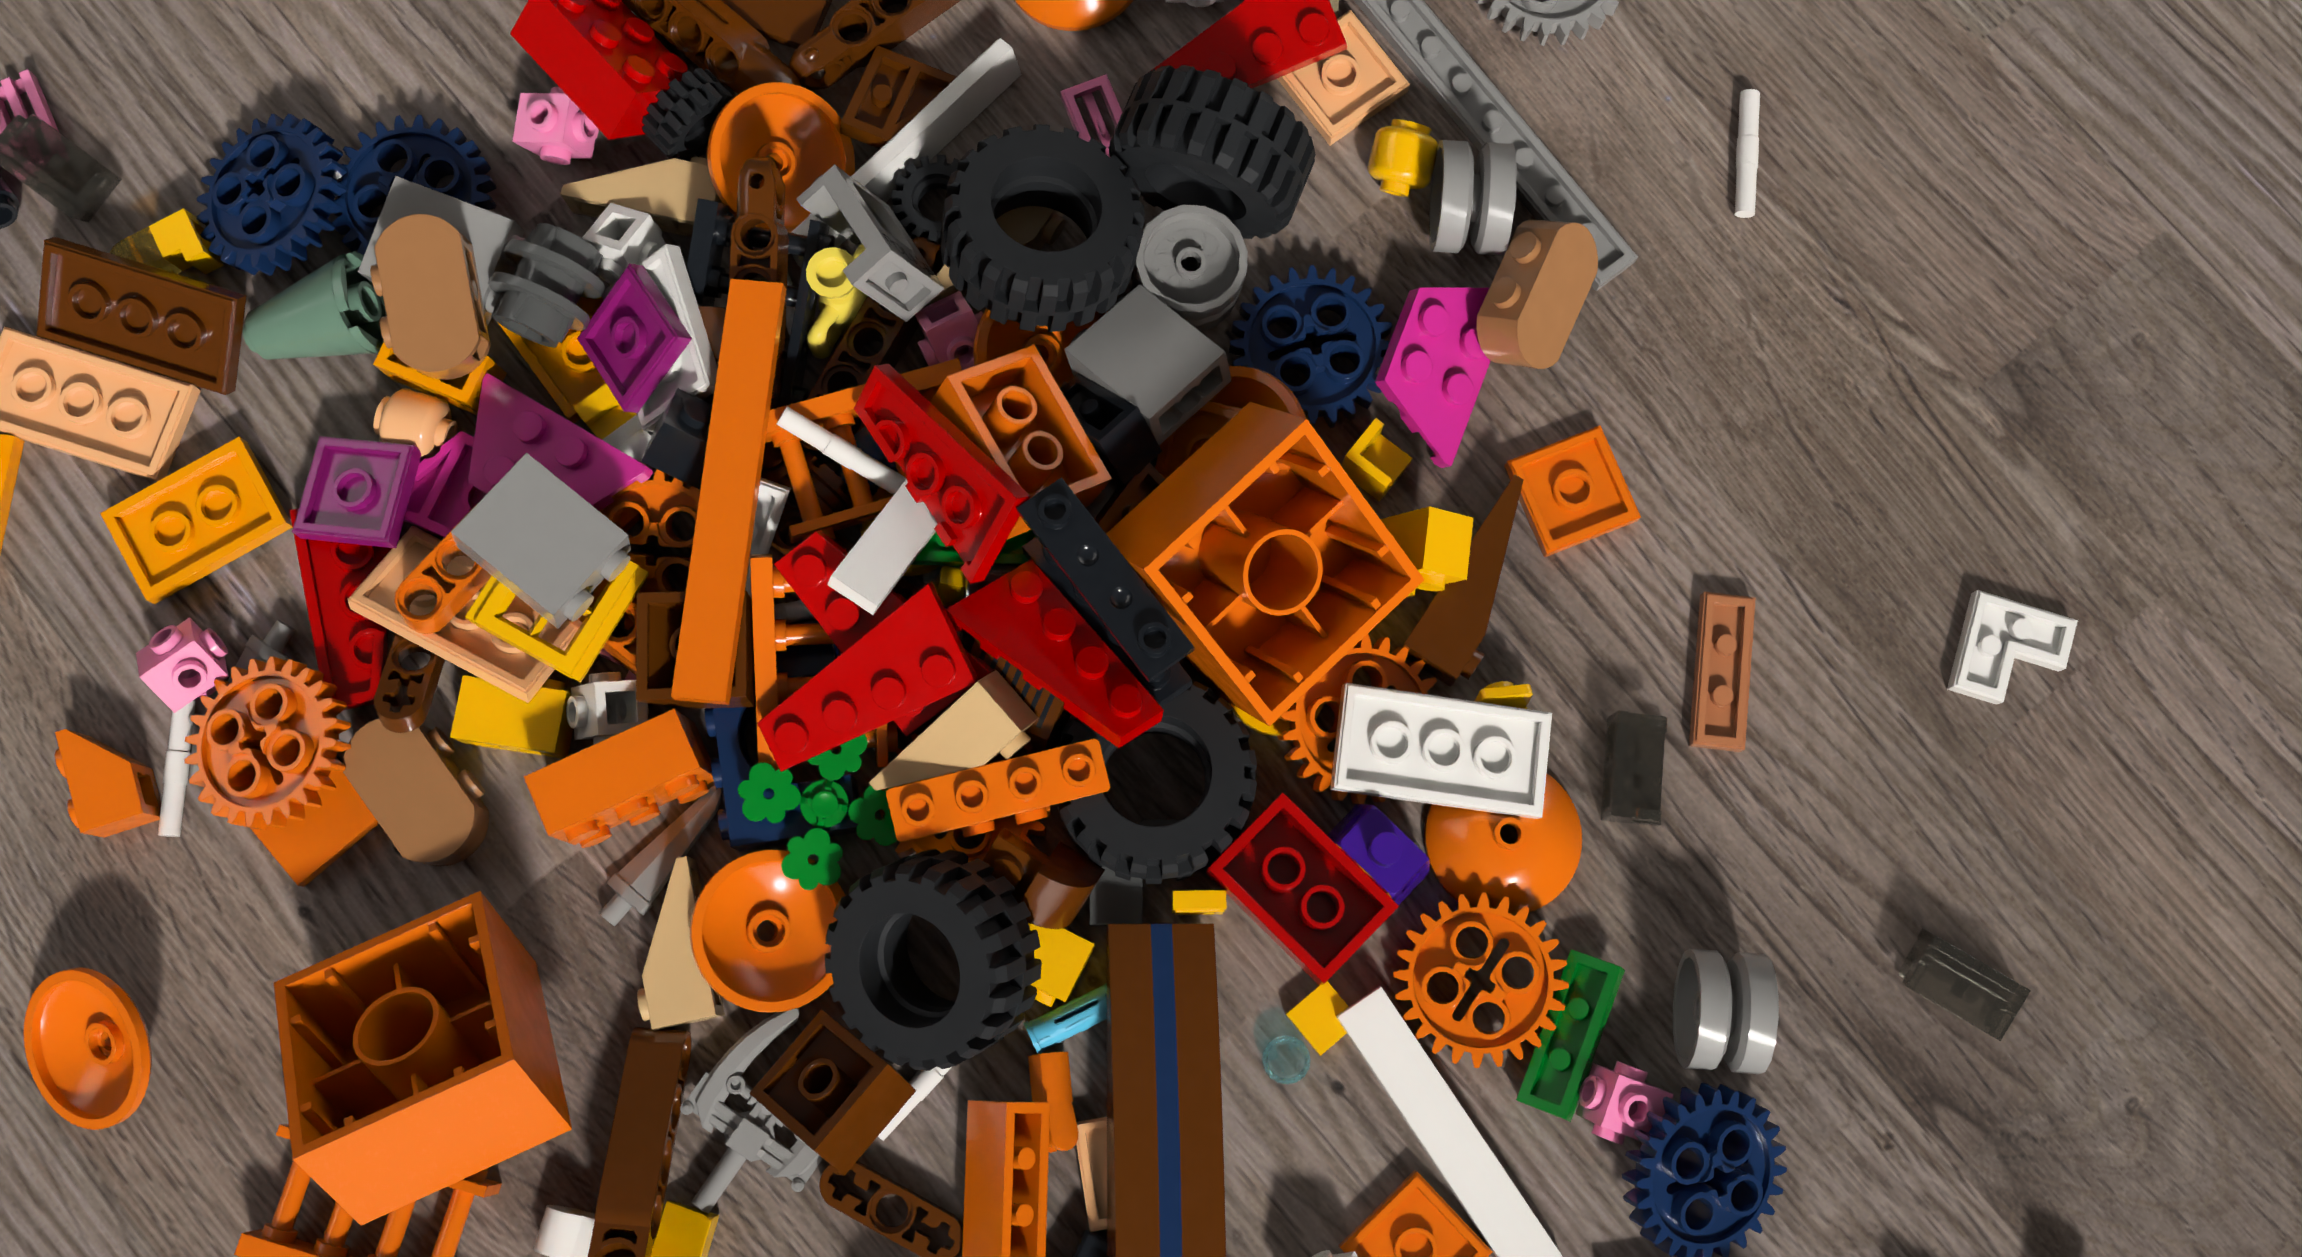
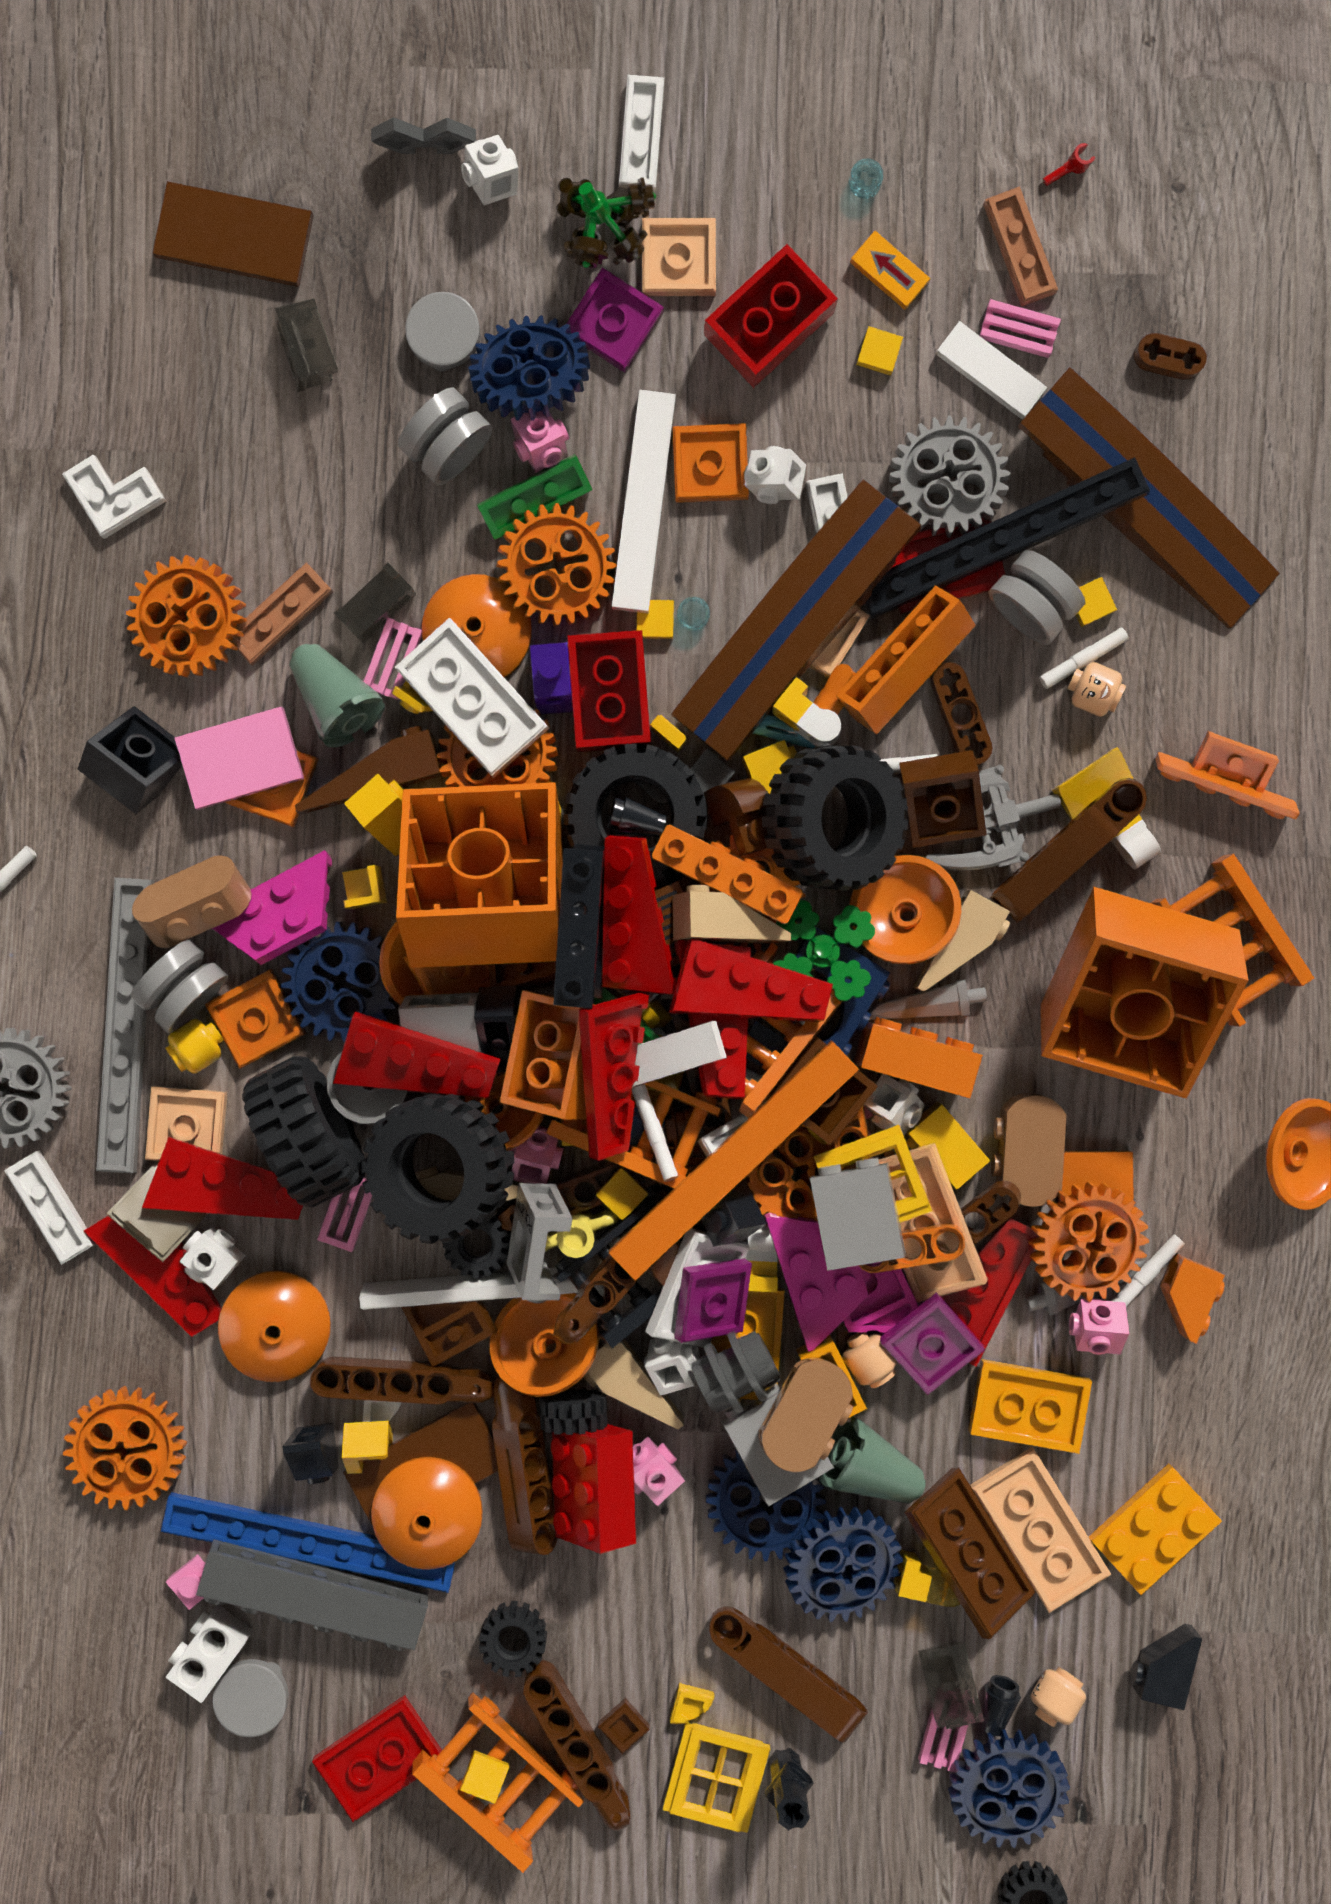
camera: 135 degrees left, 10 degrees up
(244, 45) = (787, 1672): none -> reddish brown piece
(825, 368) = (622, 1193): none -> yellow tile
(1042, 1047) = (807, 719): none -> leg
(1149, 764) = (635, 819): none -> black cone
(1172, 308) = (404, 1059): none -> red wing
(1367, 237) = (255, 1018): none -> orange tile
(1581, 721) = (379, 653): none -> bright pink tile
(1588, 630) = (334, 695): none -> sand green cone
(1624, 482) = (239, 758): none -> bright pink tile
(1730, 390) = (131, 759): none -> black slope
(1834, 1133) = (442, 330): none -> light grey tile
(1858, 590) = (166, 592): none -> orange gear
(2148, 1038) = (233, 234): none -> reddish brown tile

